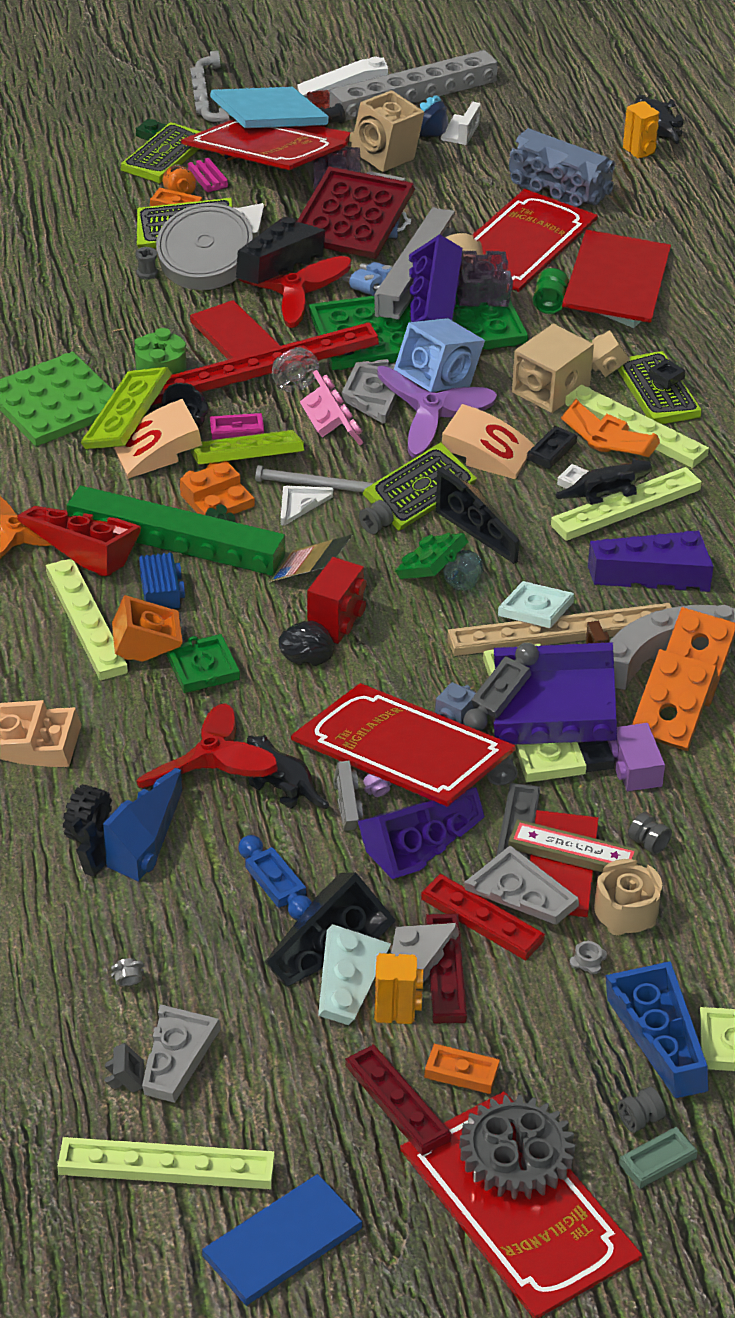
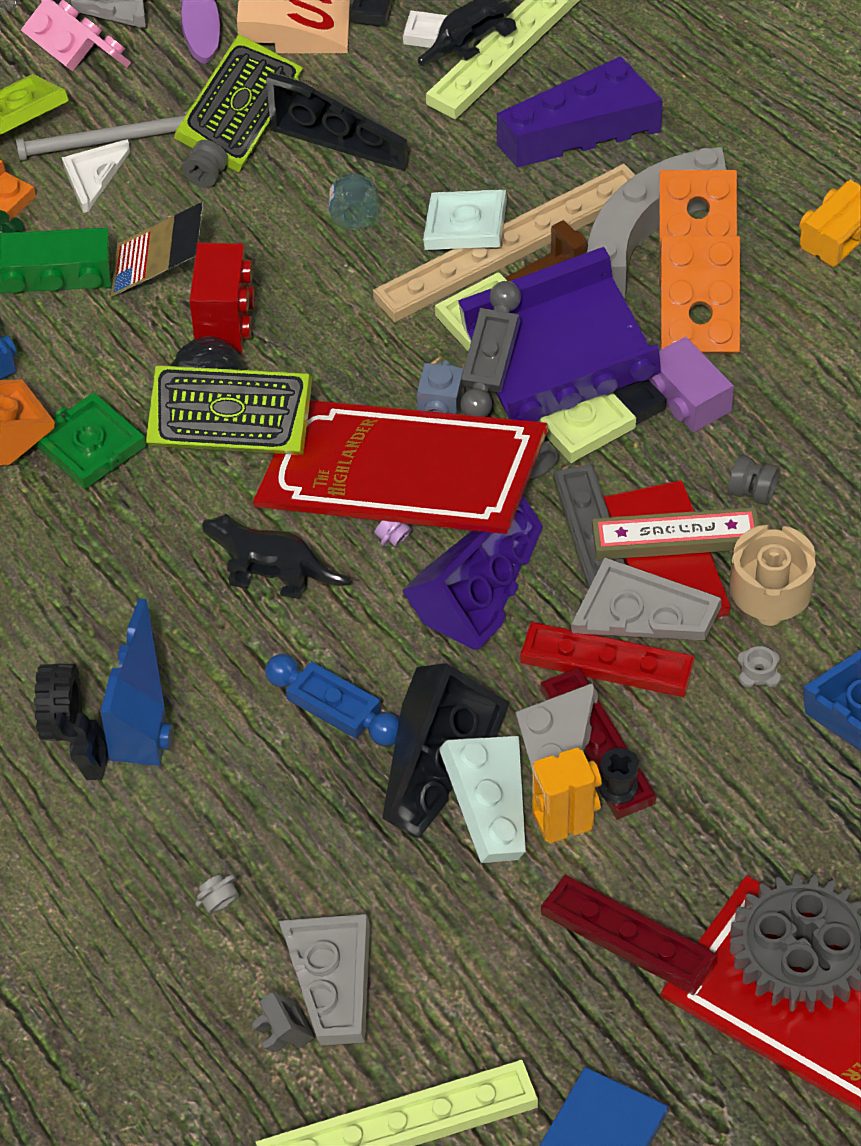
camera: 20 degrees left, 10 degrees up
(218, 751) = (174, 558): red piece -> none
(304, 671) = (229, 410): none -> tile
(349, 807) = (371, 566): light grey wing -> none
(431, 555) = (308, 197): green plate -> none
(442, 993) = (619, 775): none -> black bush
(462, 1068) = (685, 866): orange plate -> none

